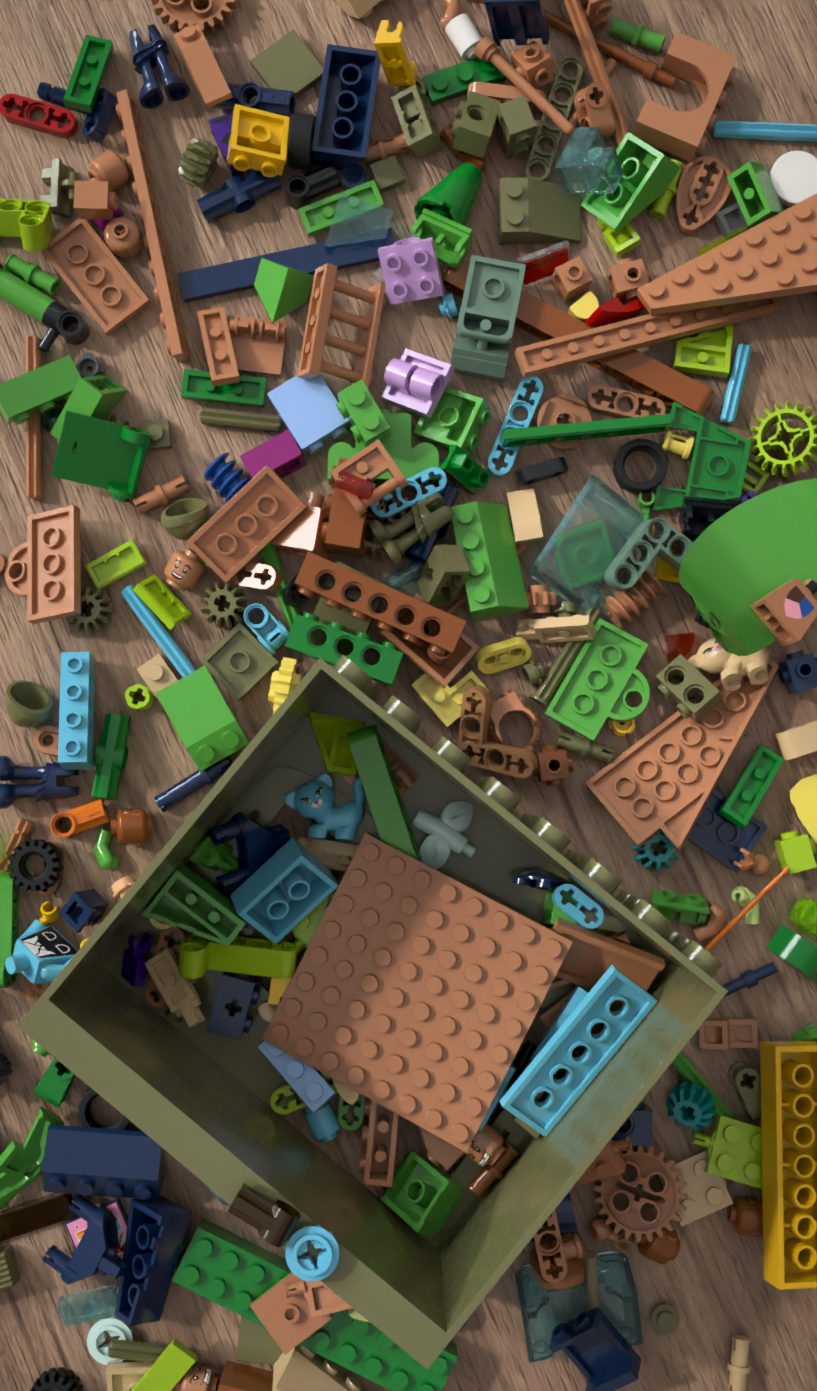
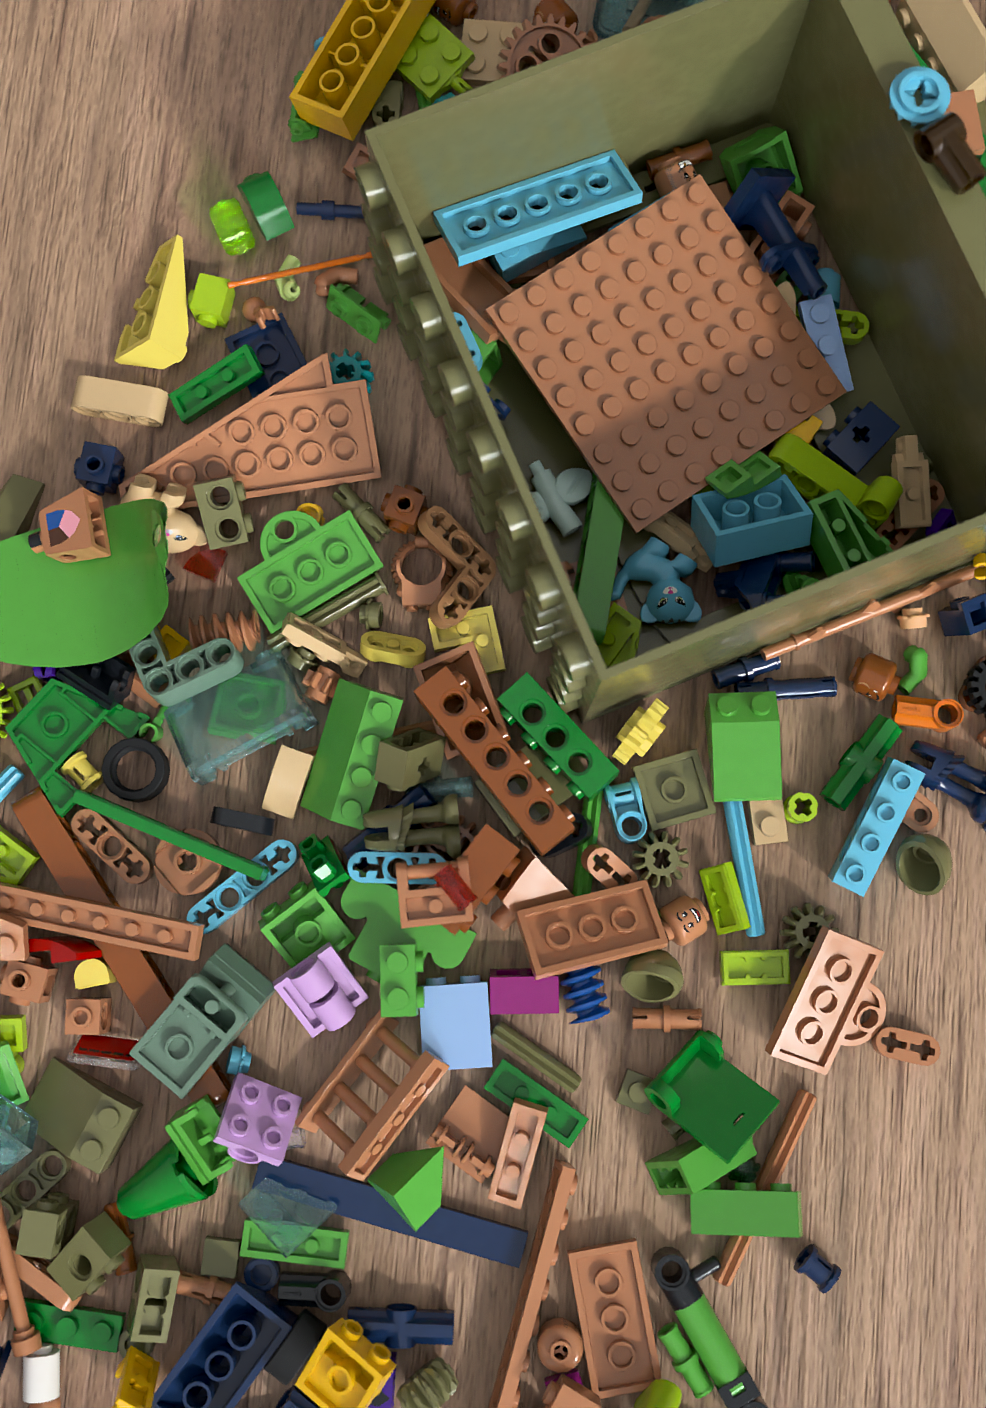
camera: 150 degrees left, 5 degrees down
(89, 361) = (670, 1219): dark grey plate -> none
(302, 925) = (750, 475): none -> bright green slope
(407, 1153) = (757, 208): none -> dark blue piece

